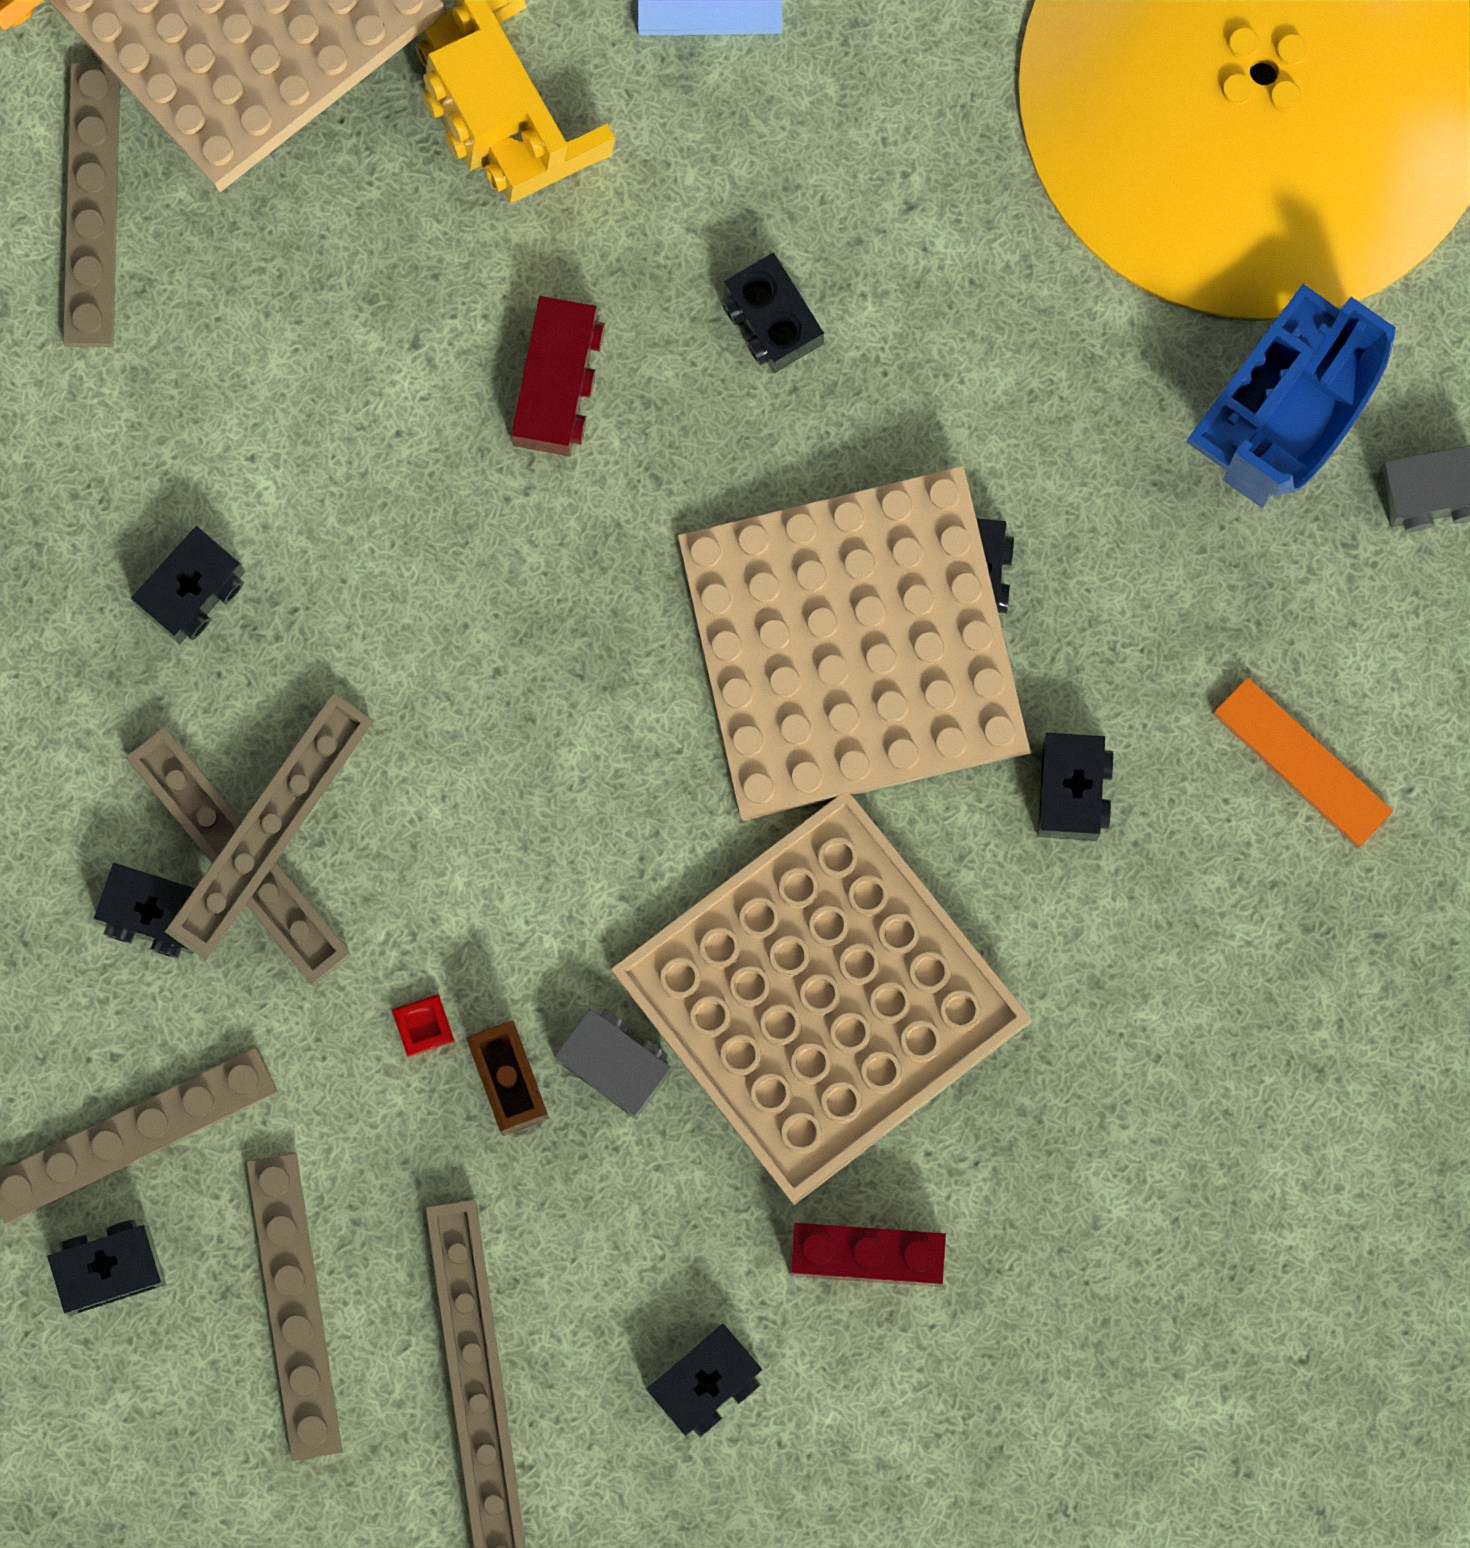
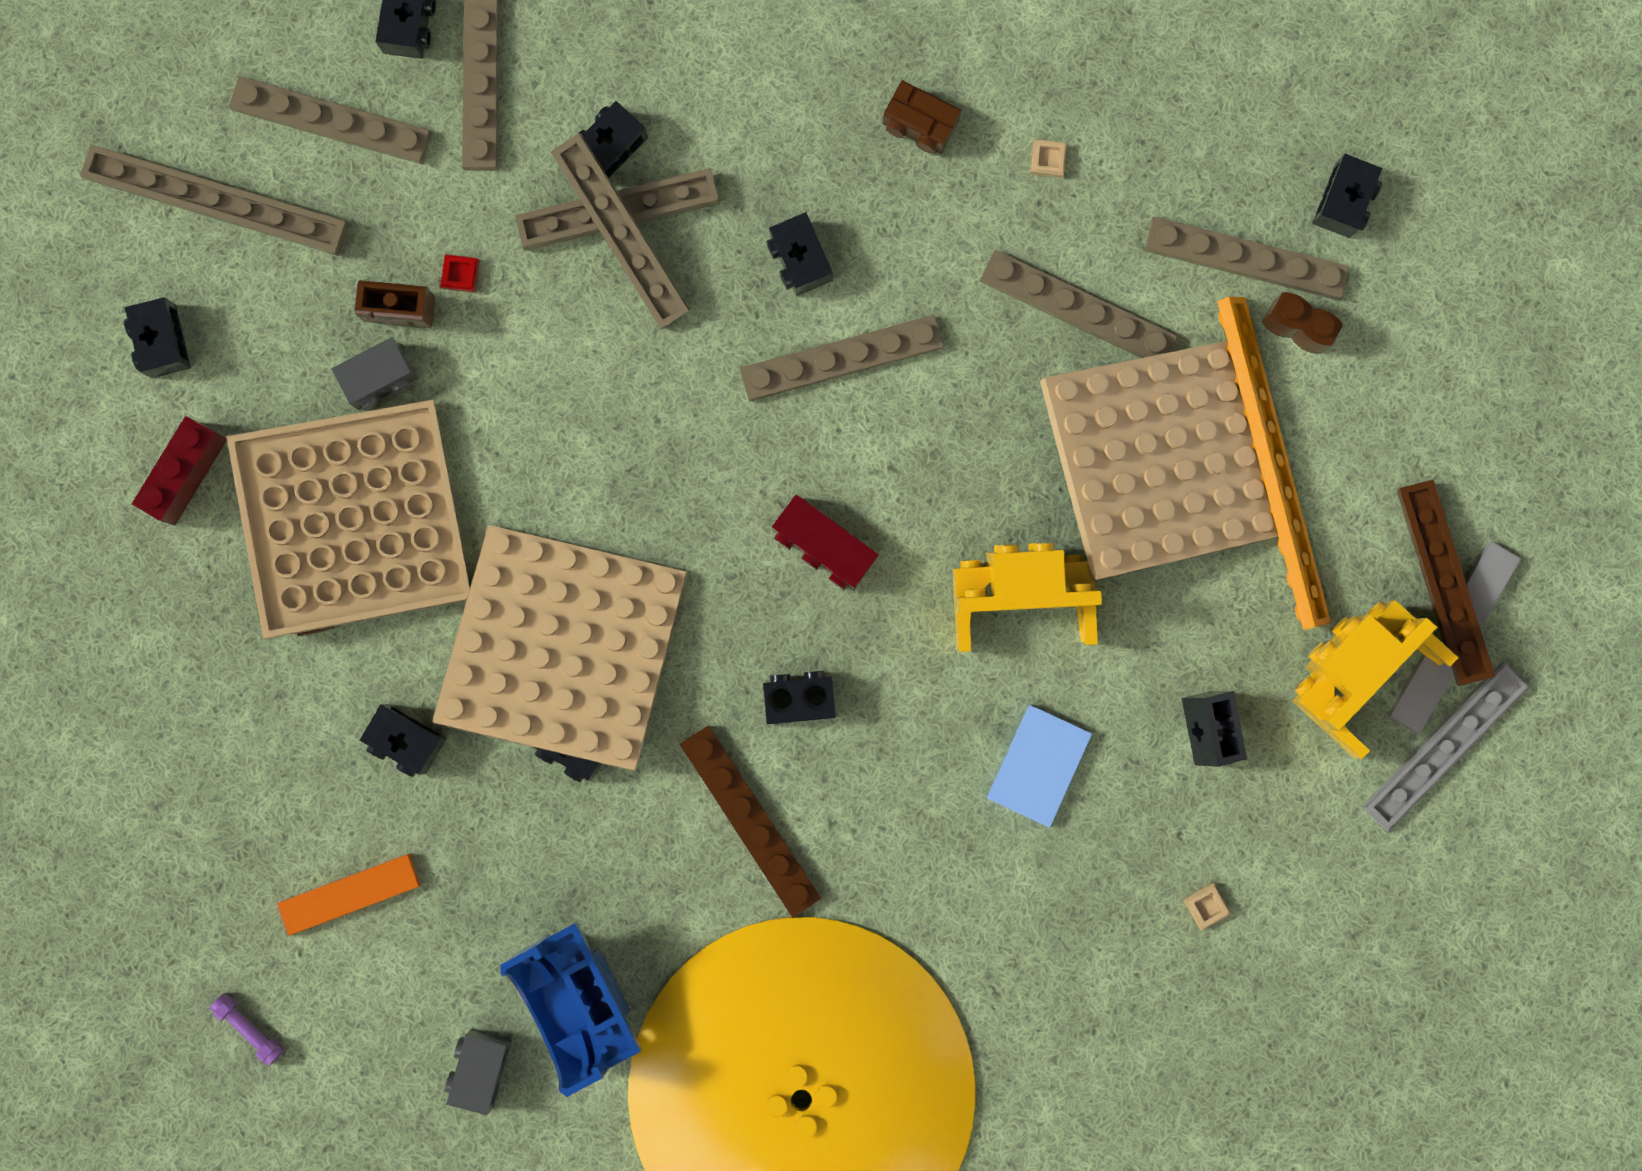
camera: 115 degrees right, 5 degrees up
(301, 473) = (841, 358): none -> dark tan plate
(955, 306) = (750, 821): none -> reddish brown plate

